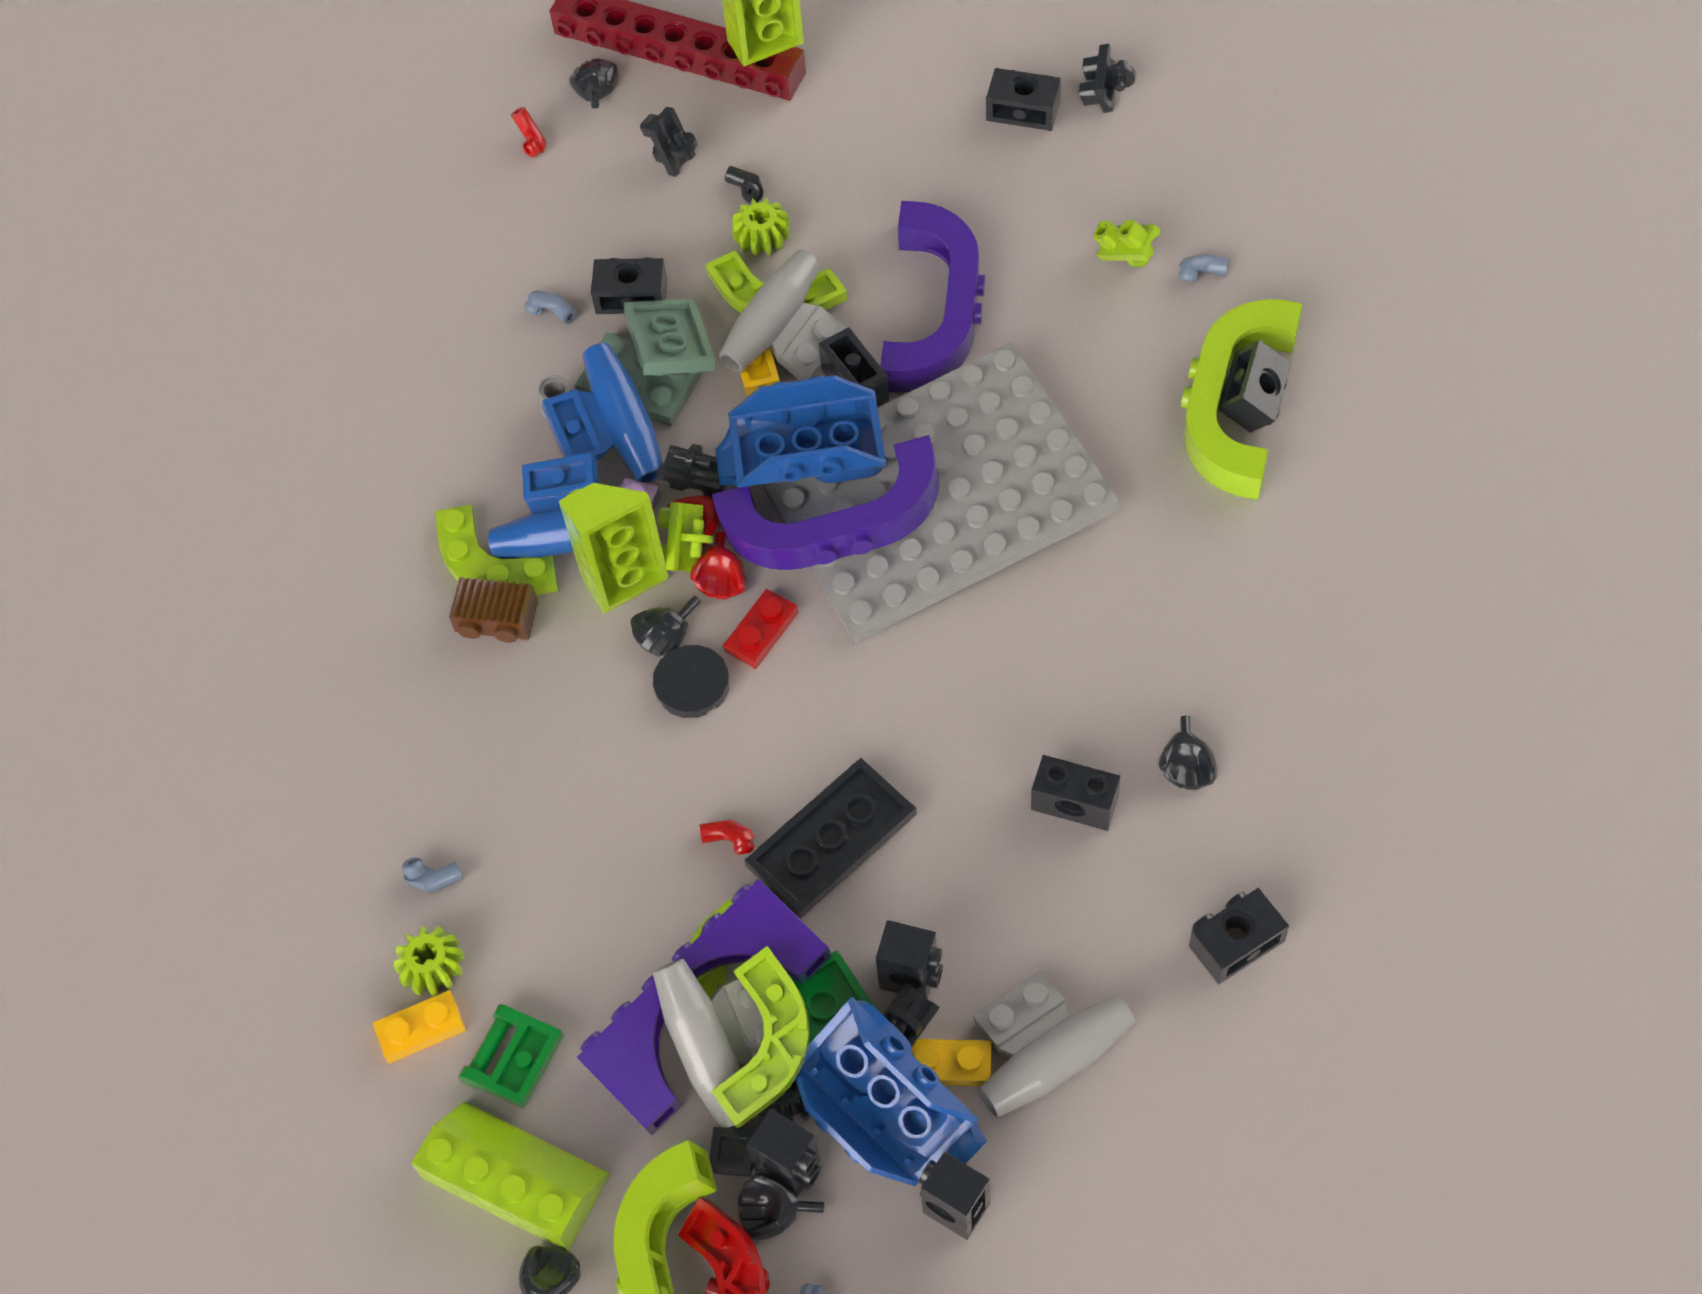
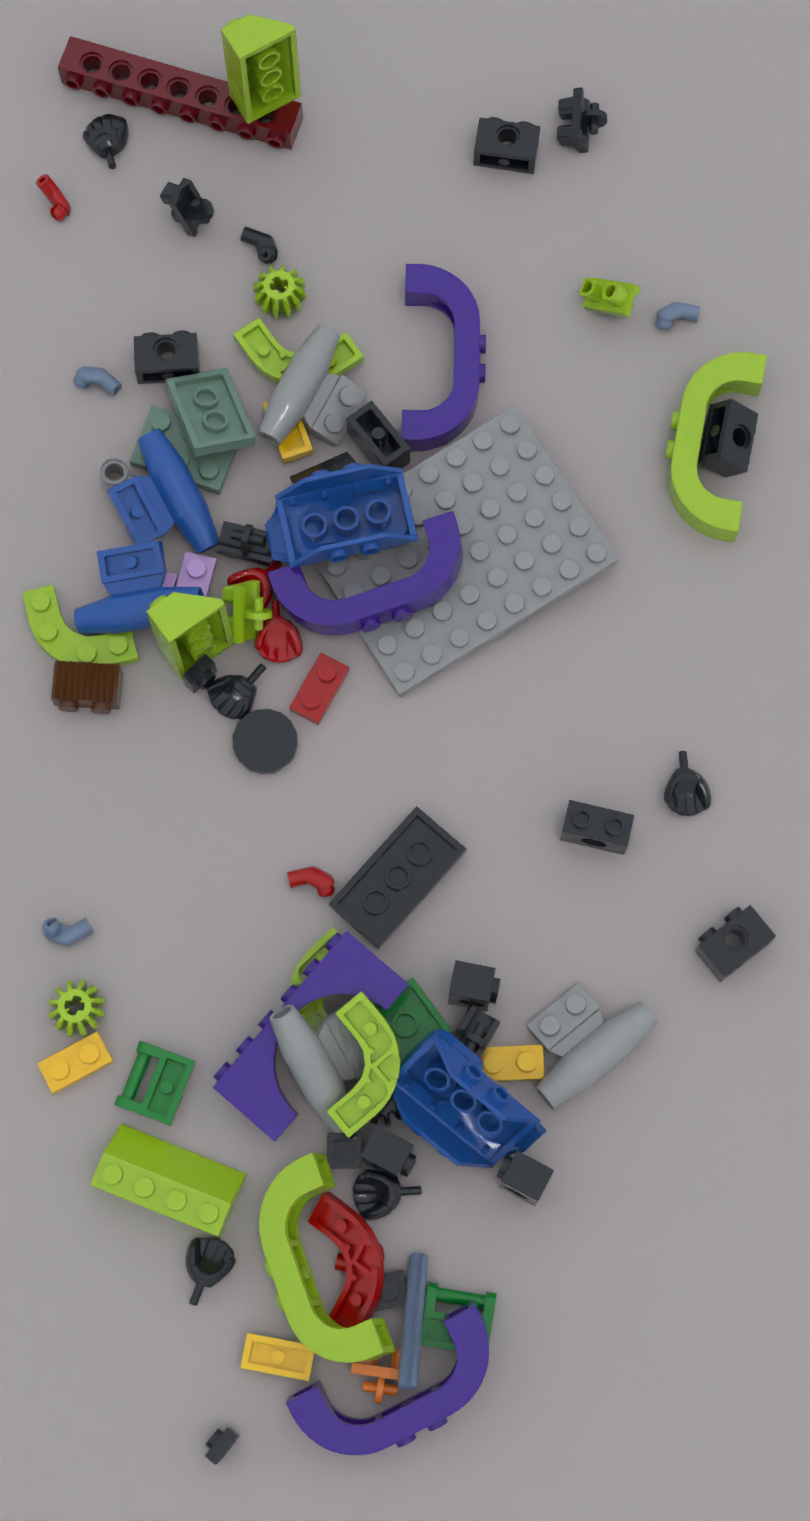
camera: 10 degrees left, 15 degrees up
(623, 603) = (200, 674): none -> black plate

